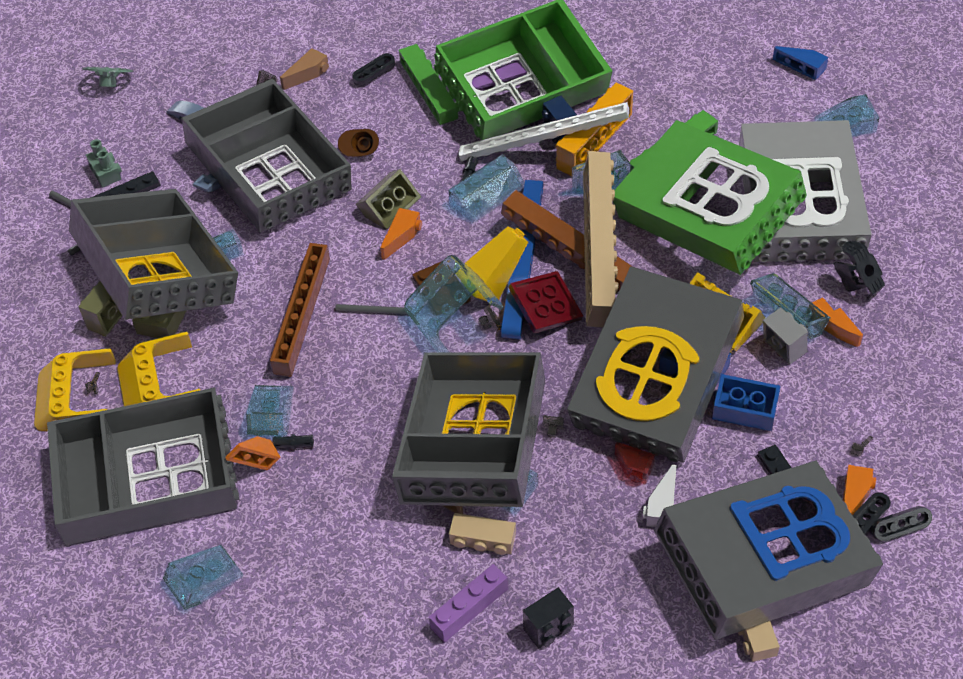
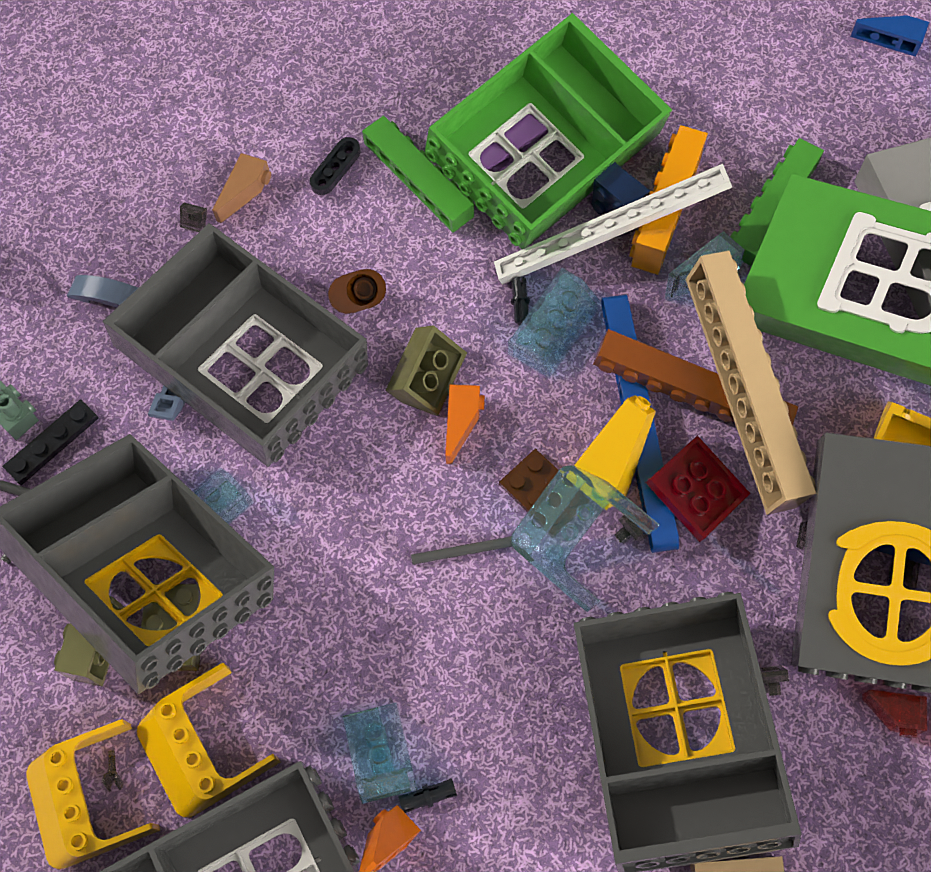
camera: 15 degrees left, 15 degrees up
(300, 310) = (367, 582): dark orange brick -> none

